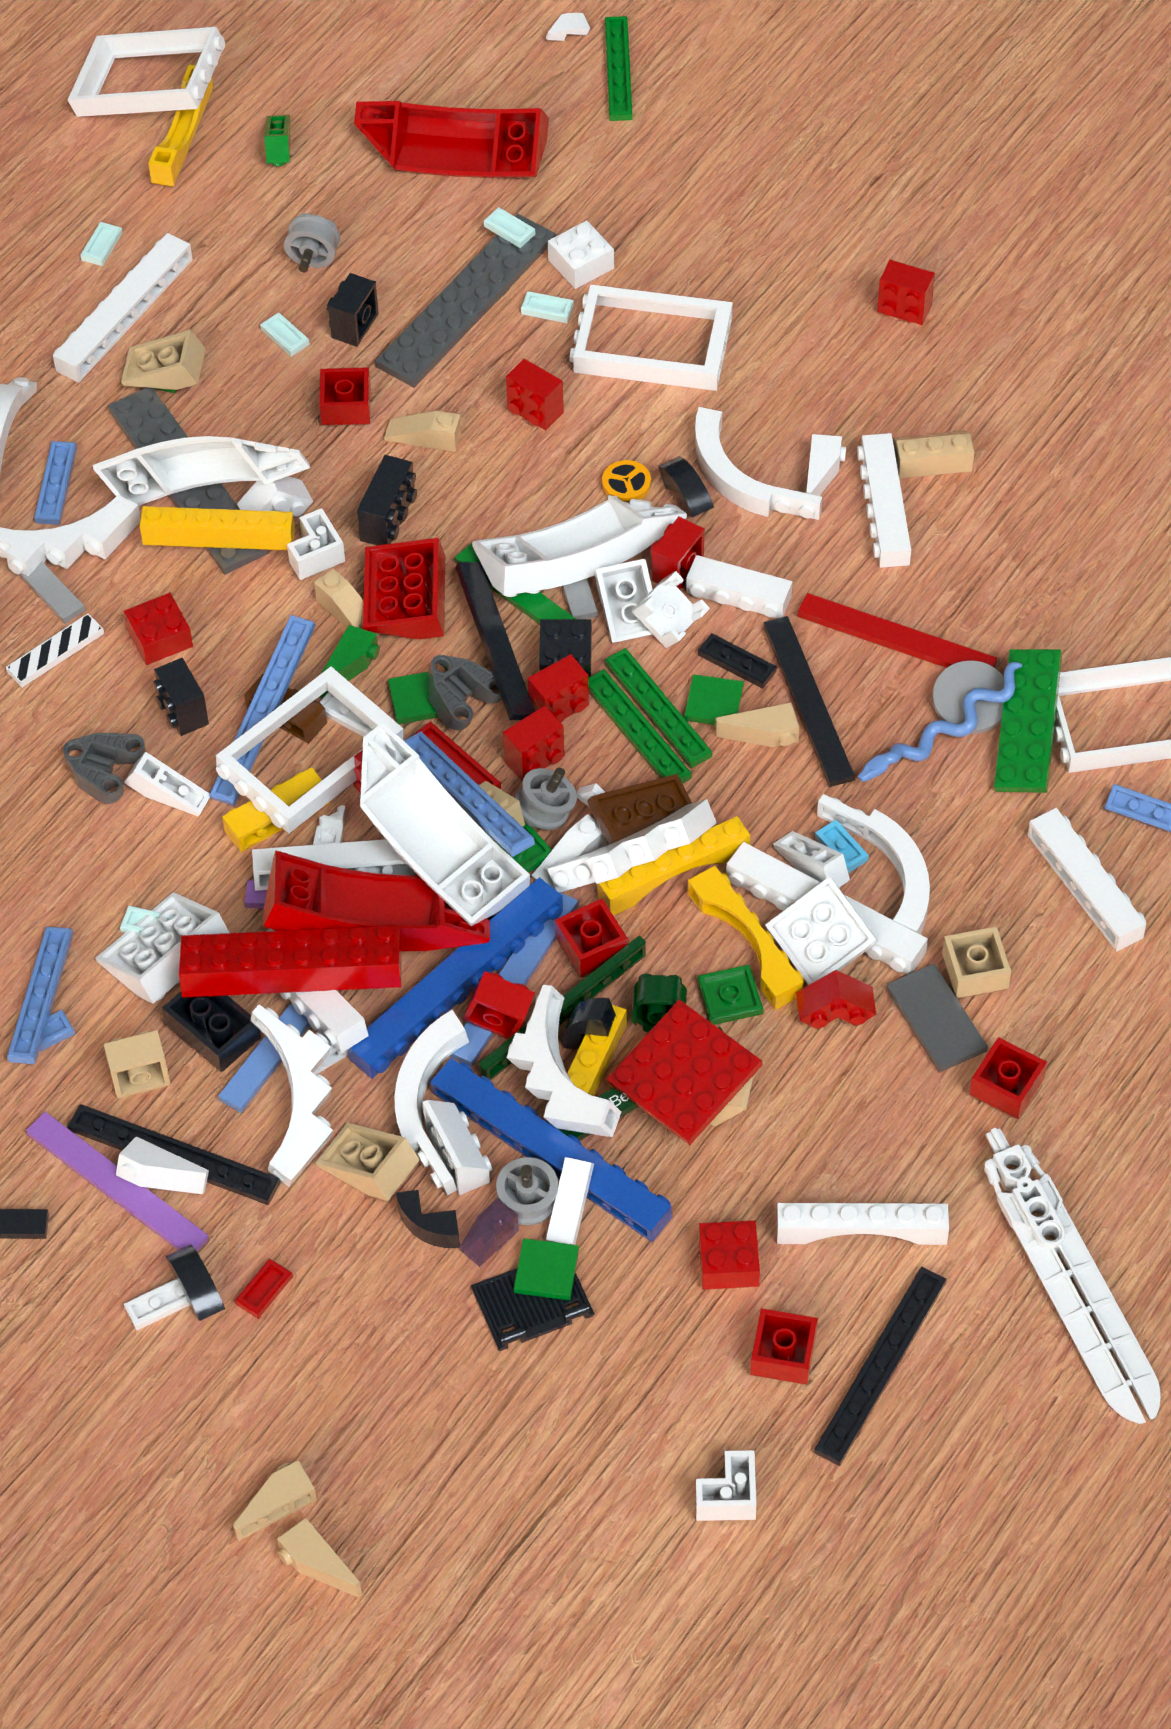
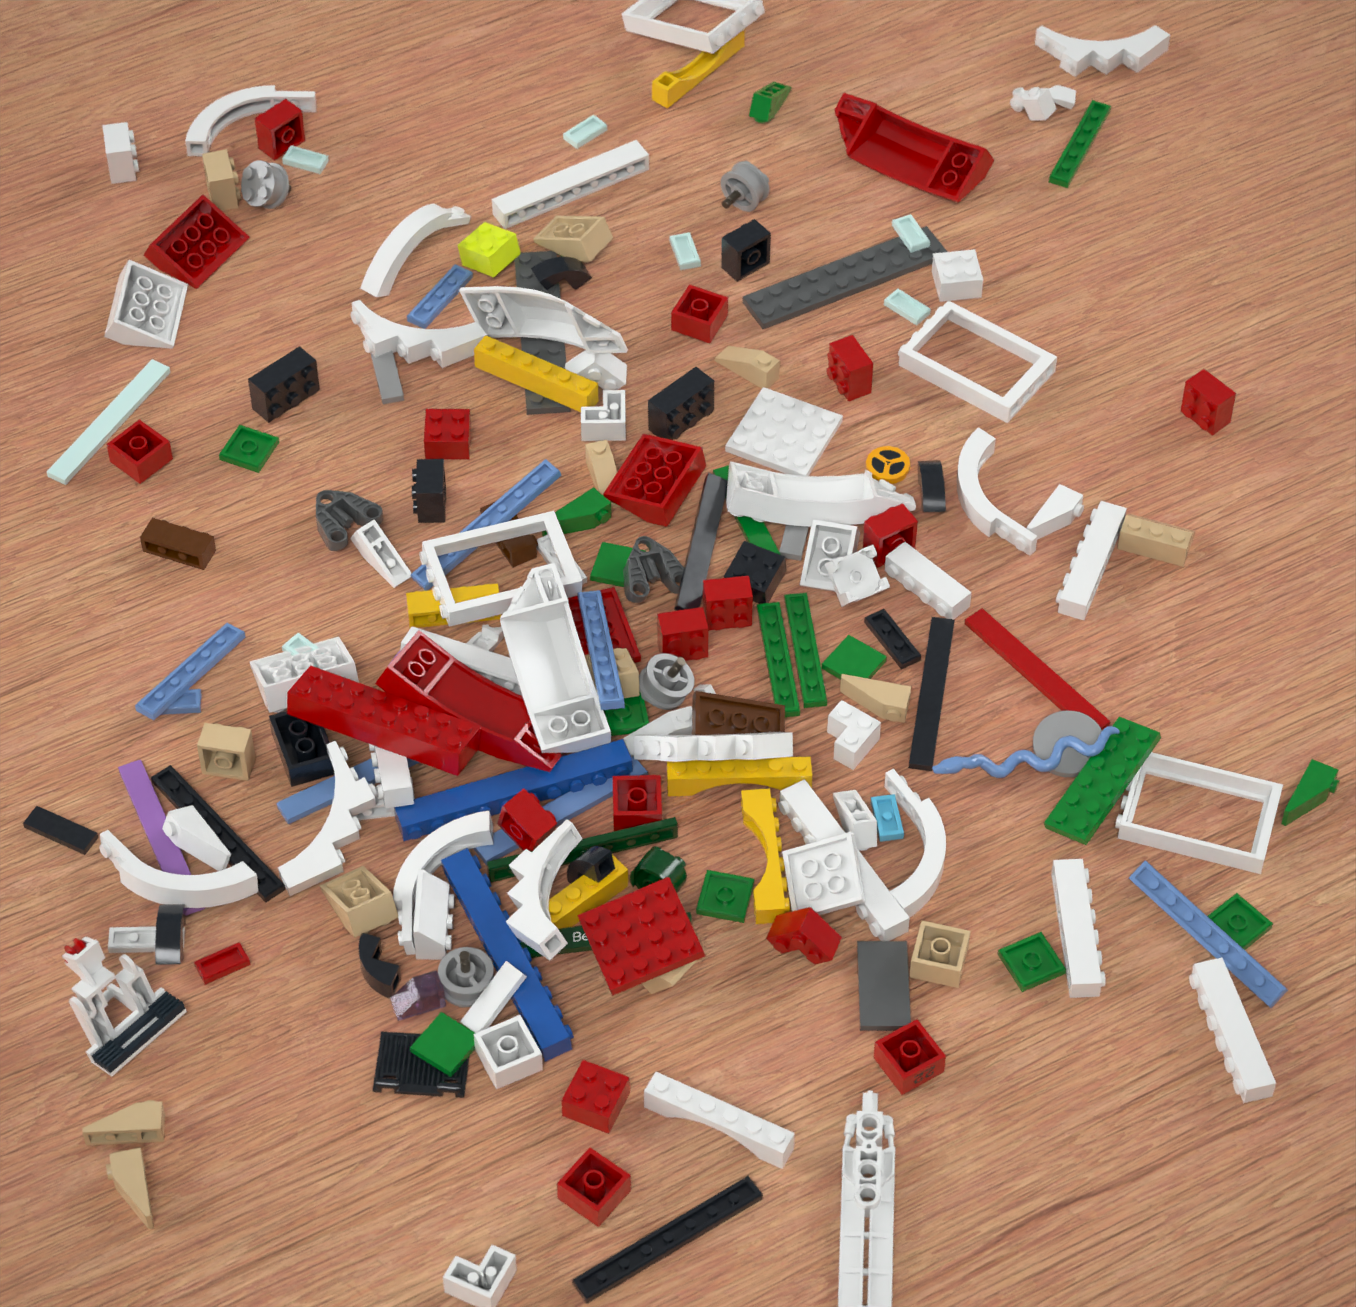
camera: 25 degrees right, 5 degrees down
(54, 650) = (361, 420): white tile -> none
(81, 411) = (489, 249): none -> neon yellow brick
(166, 1234) = (169, 888): none -> white arch
(172, 404) = (555, 269): none -> black brick
(223, 1369) = (151, 1011): none -> white container
(502, 489) = (784, 433): none -> white plate
(553, 38) = (1036, 101): none -> white brick
(617, 1249) = (508, 1052): none -> white brick
(760, 770) = (854, 732): none -> white brick
(1061, 931) = (1031, 961): none -> green tile

